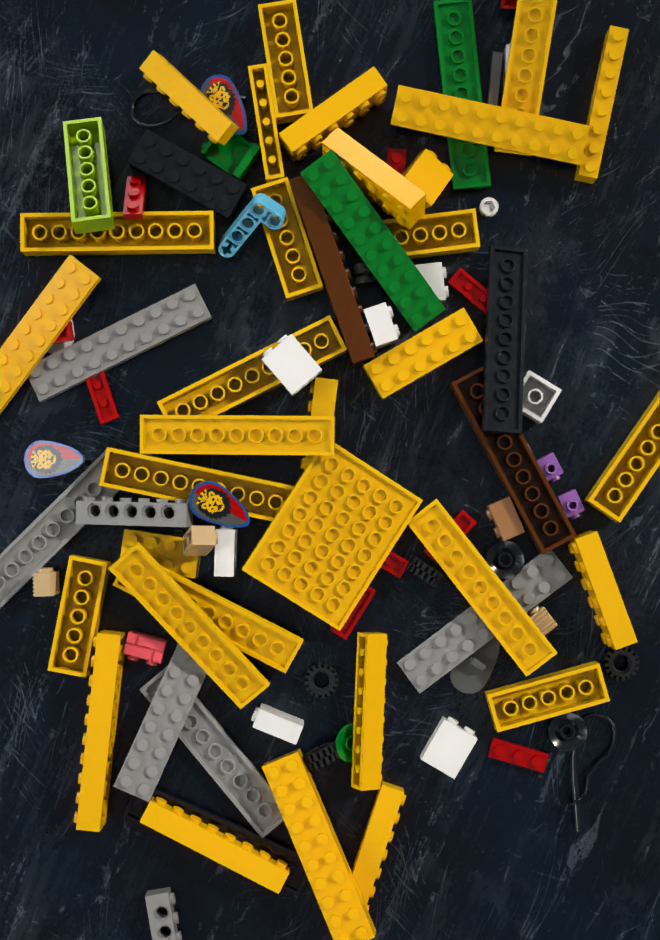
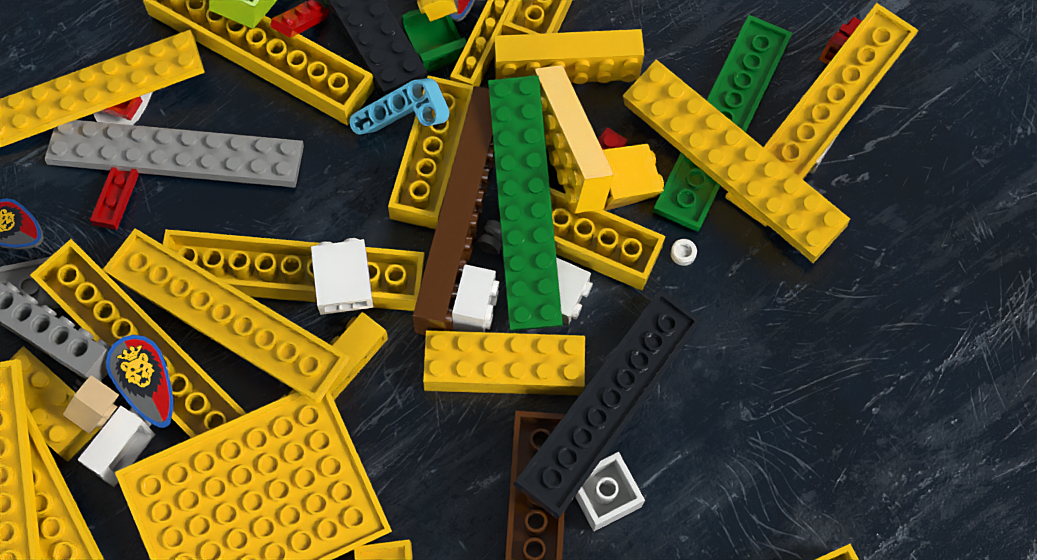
camera: 25 degrees right, 20 degrees down
(470, 289) = (605, 323): red plate -> none
(494, 78) = (773, 121): dark grey beam -> none
(602, 103) = (877, 218): yellow brick -> none

